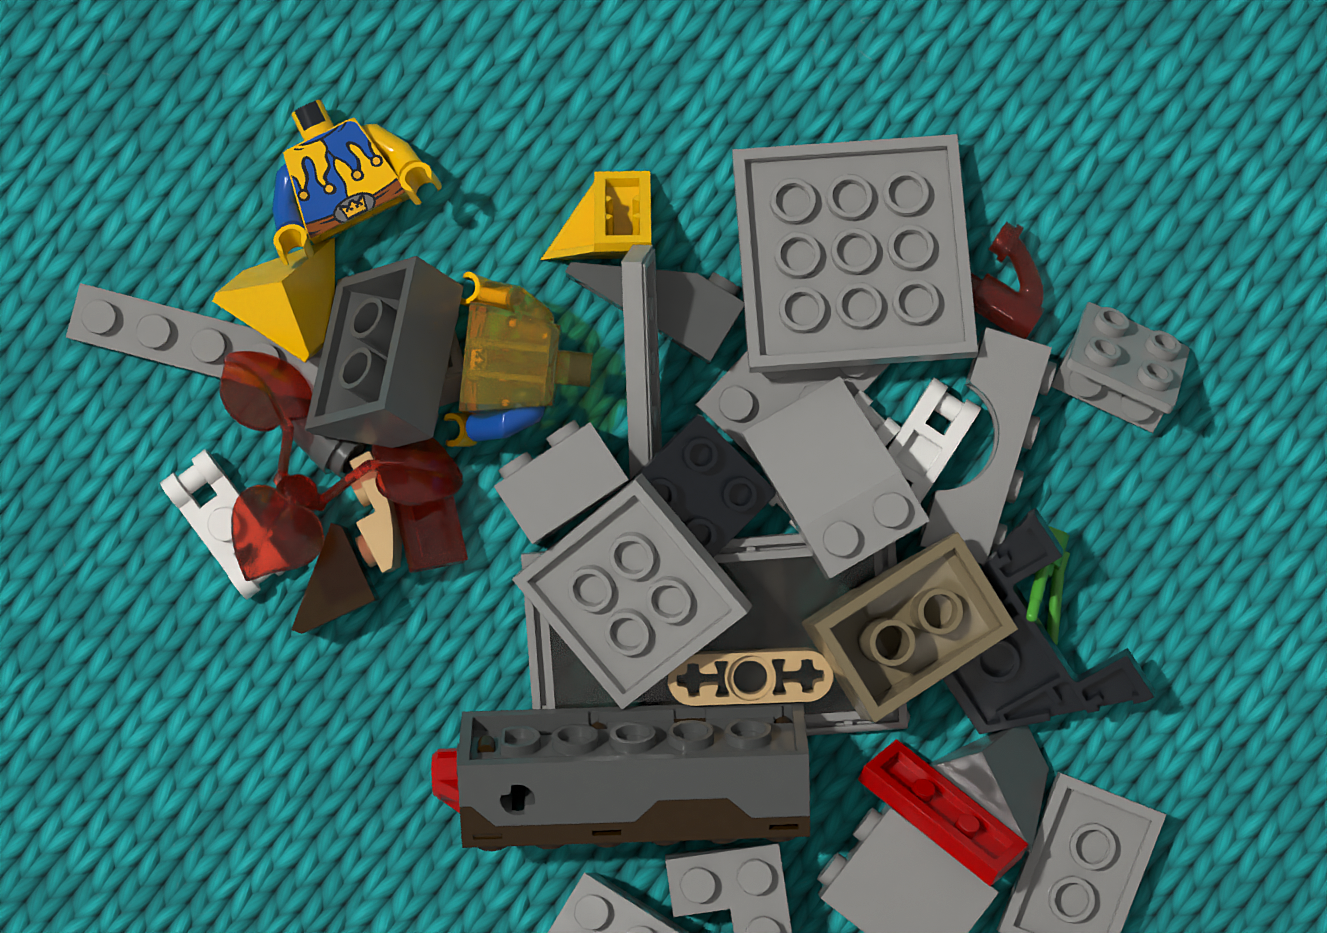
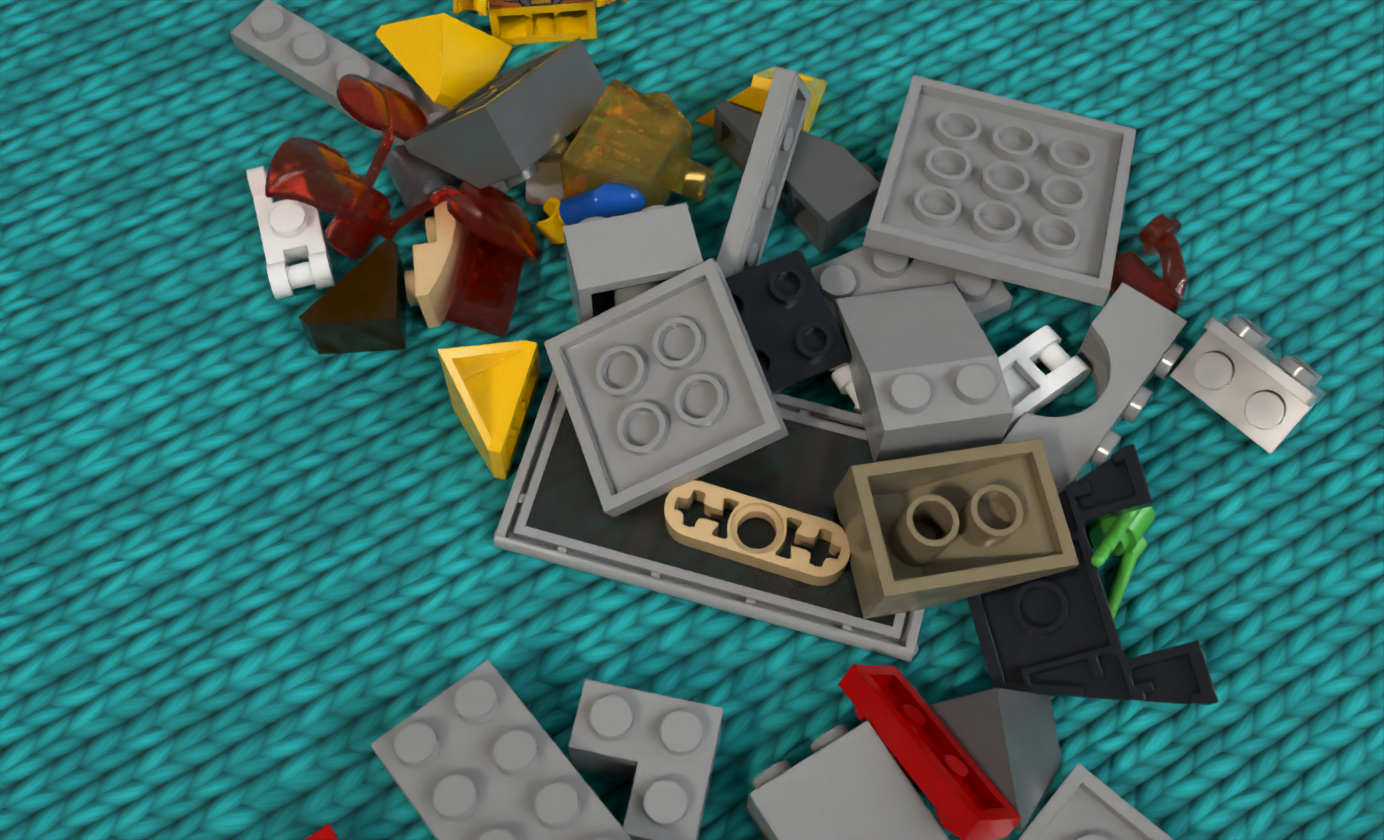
camera: 20 degrees right, 25 degrees down
(486, 637) = (492, 395): none -> yellow slope
(628, 775) = (580, 575): dark grey piece -> none

